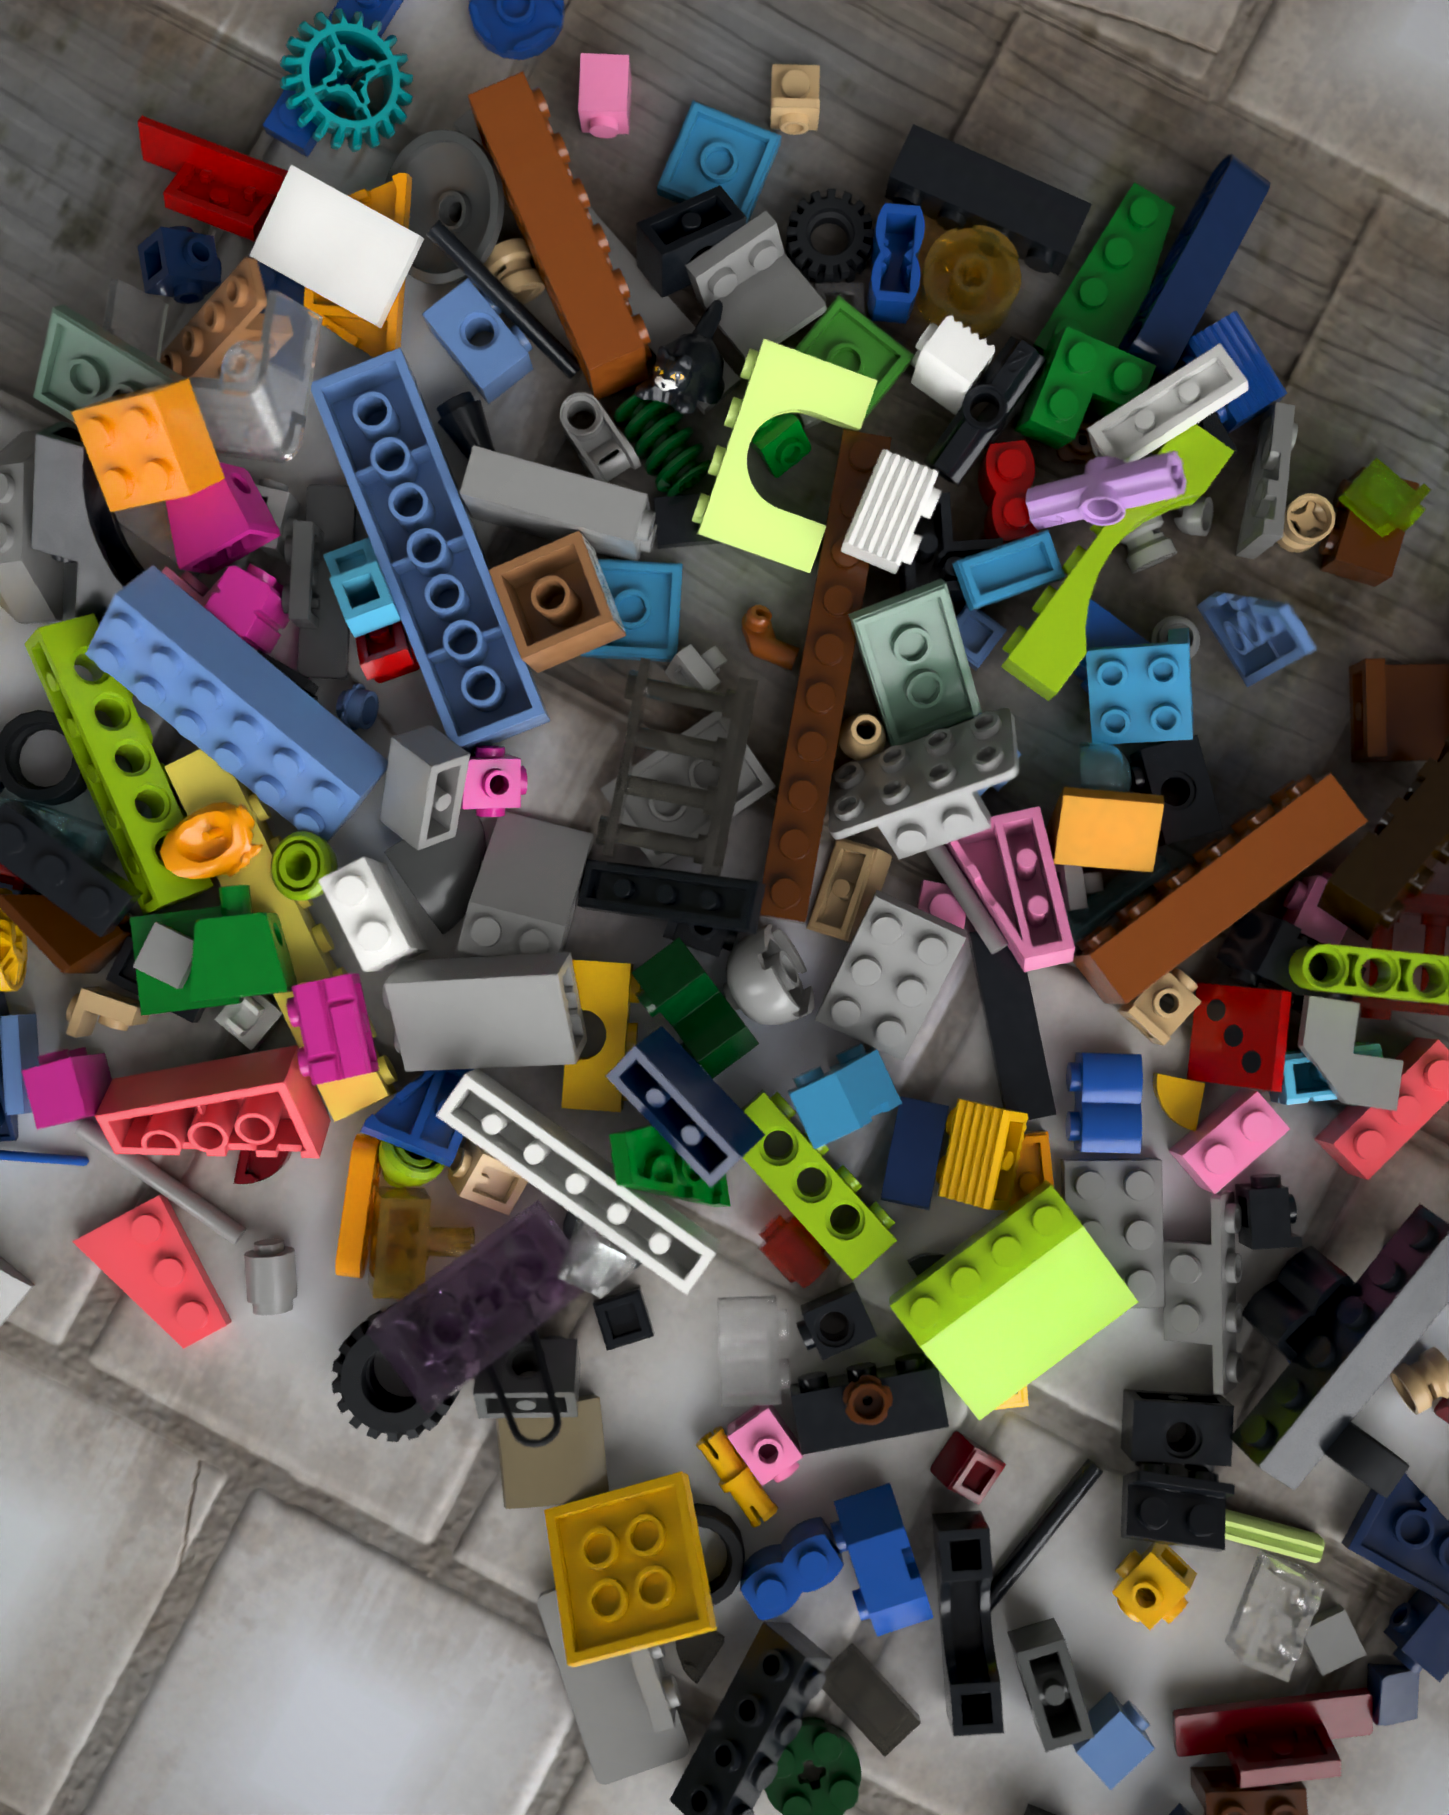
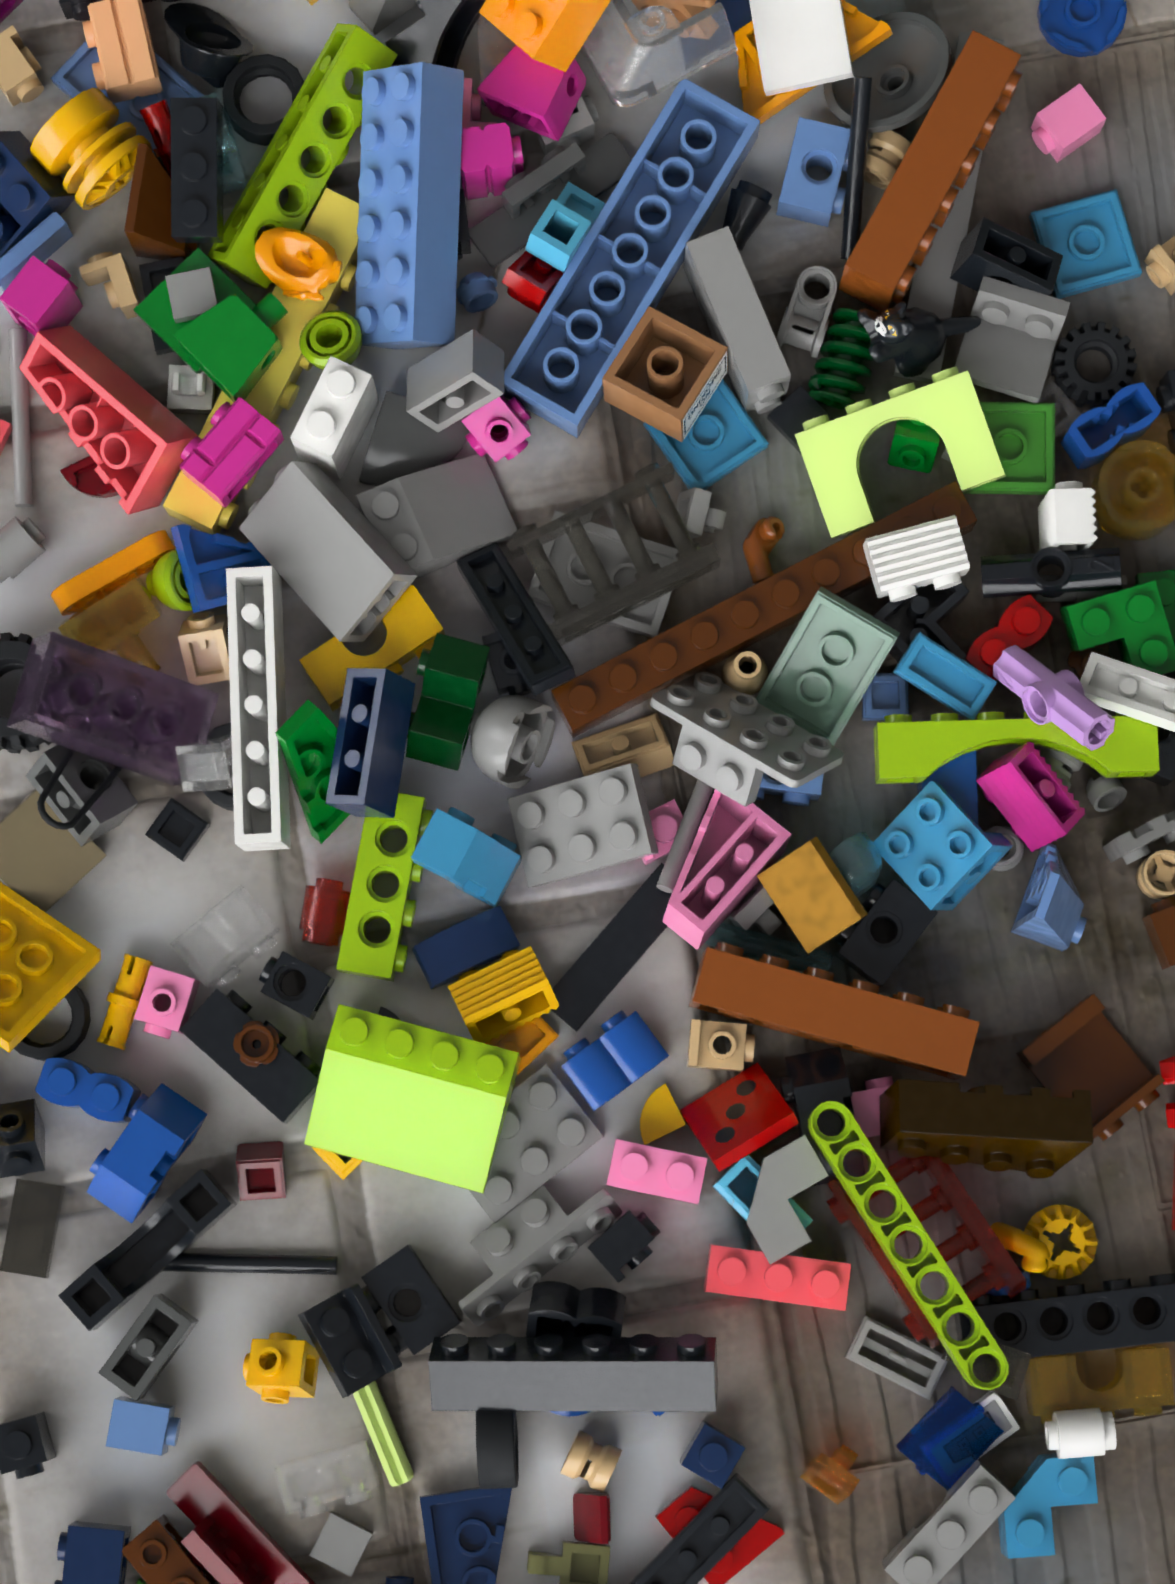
camera: 50 degrees right, 5 degrees down
(1162, 579) = (1030, 796): none -> dark pink brick

